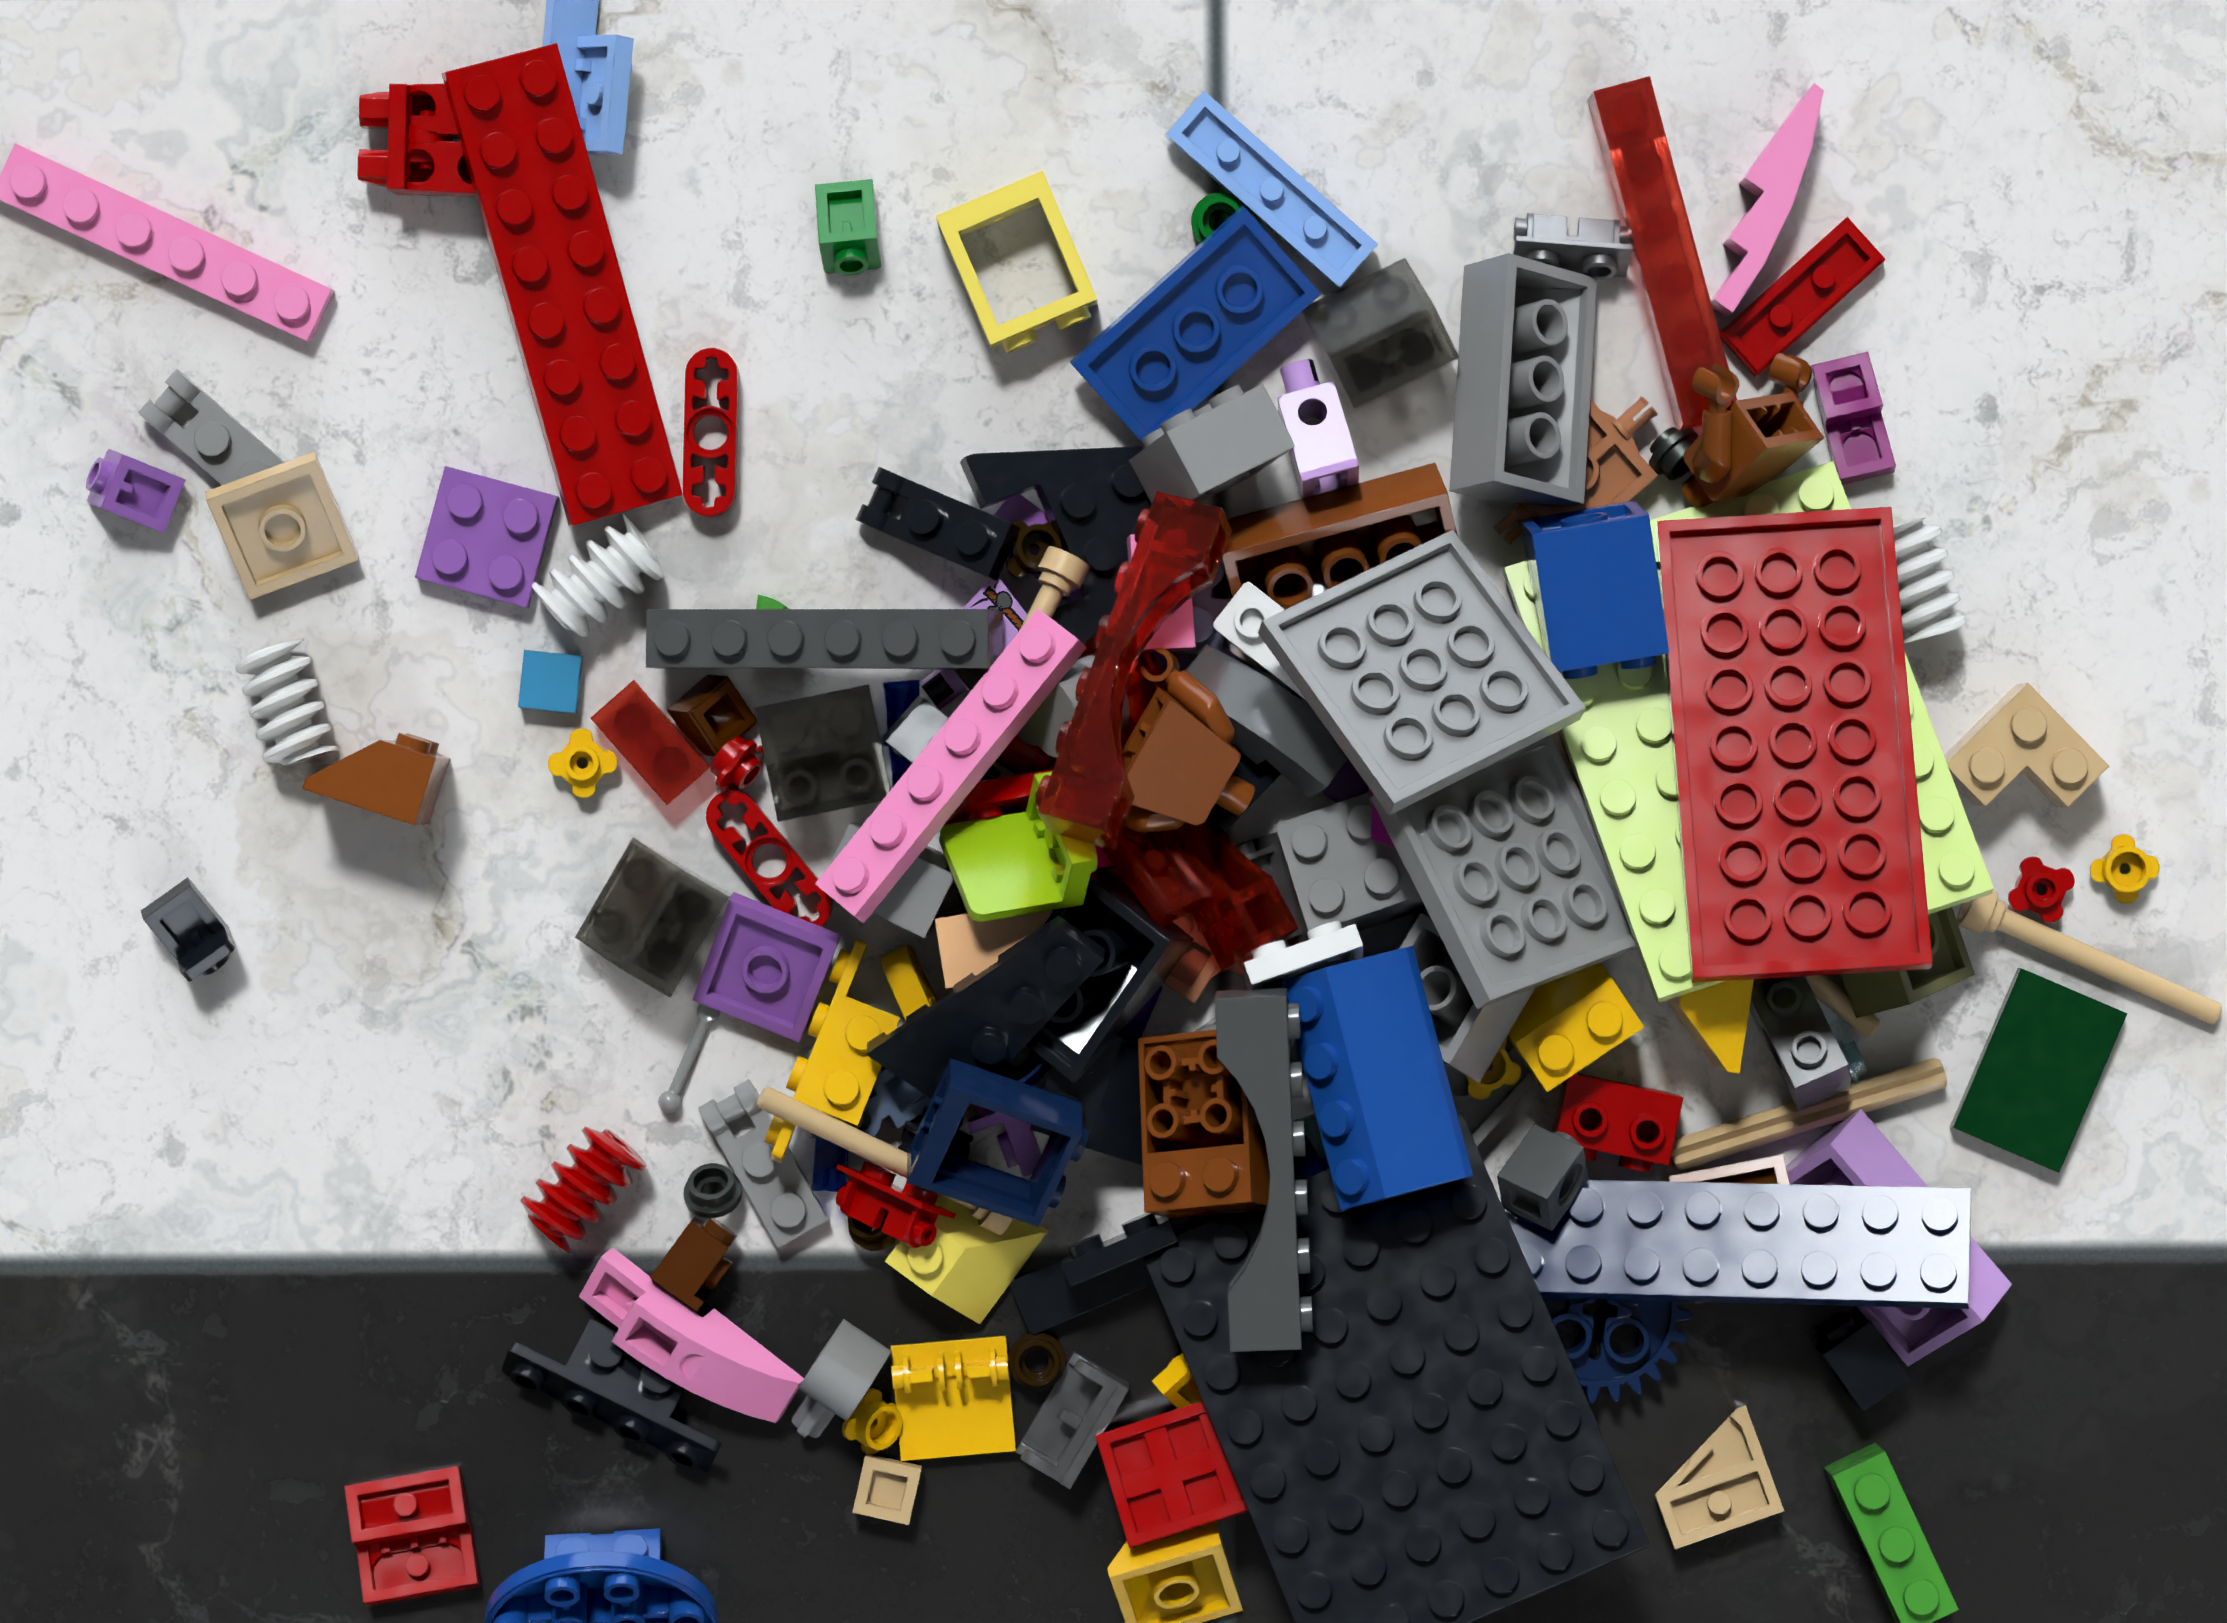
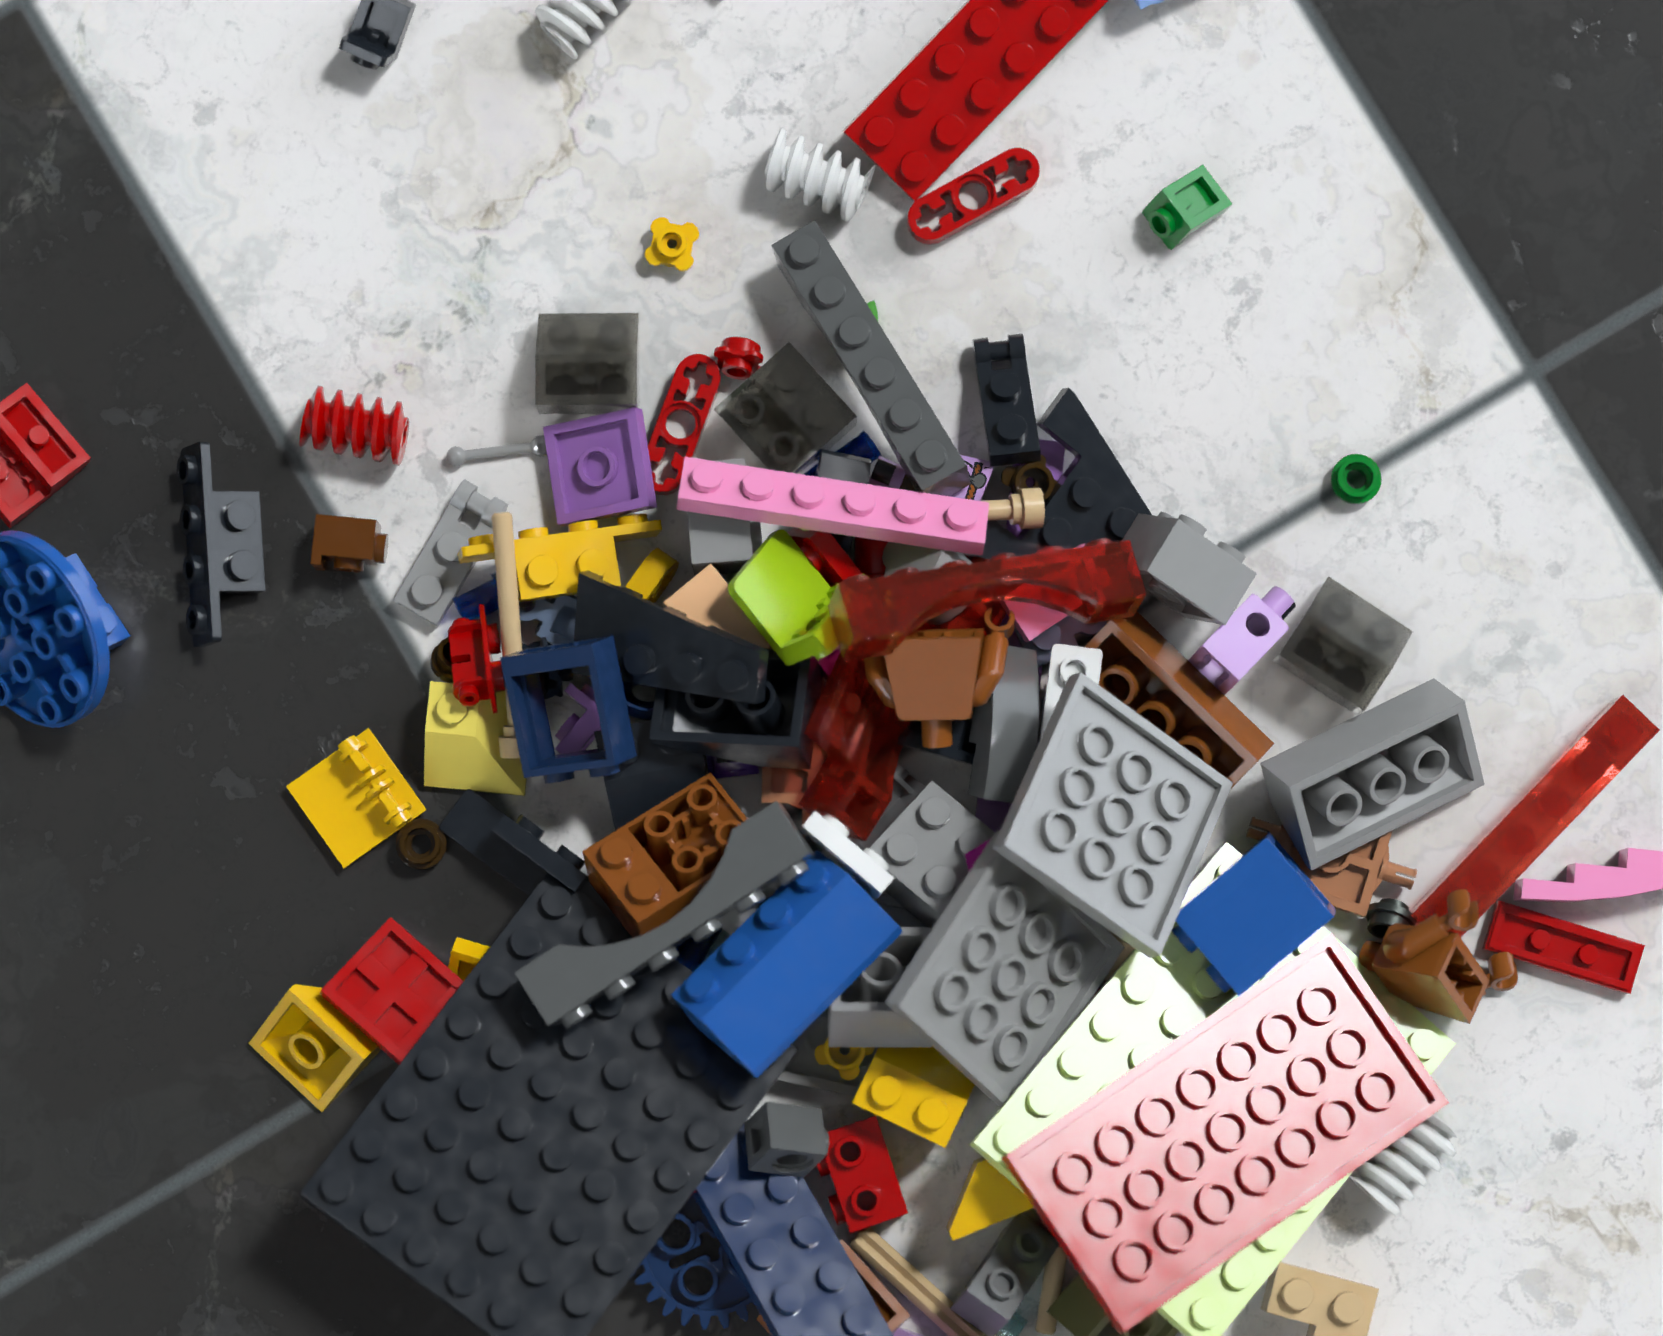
camera: 60 degrees right, 5 degrees down
(387, 778) = (577, 106): dark orange slope -> none
(486, 537) = (798, 77): medium lavender plate -> none
(550, 681) = (718, 186): dark azure tile -> none
(650, 742) = (717, 285): clear red plate -> none
(693, 1351) = (278, 576): bright pink slope -> none
(712, 714) = (764, 318): reddish brown slope -> none
(712, 1191) = (408, 525): pearl dark grey plate -> none
(838, 1379) = (321, 700): light grey beam -> none
(873, 1423) = (304, 758): yellow plate -> none
(887, 1489) = (258, 788): tan plate -> none
(993, 208) = (1267, 307): light yellow window -> none
(1070, 1418) = (403, 894): flat silver hinge -> none
(1196, 325) = (1270, 504): blue plate -> none
(1271, 190) = (1402, 502): light blue plate -> none
(1598, 250) = (1504, 772): flat silver hinge -> none
(1853, 418) = (1496, 1040): magenta slope -> none

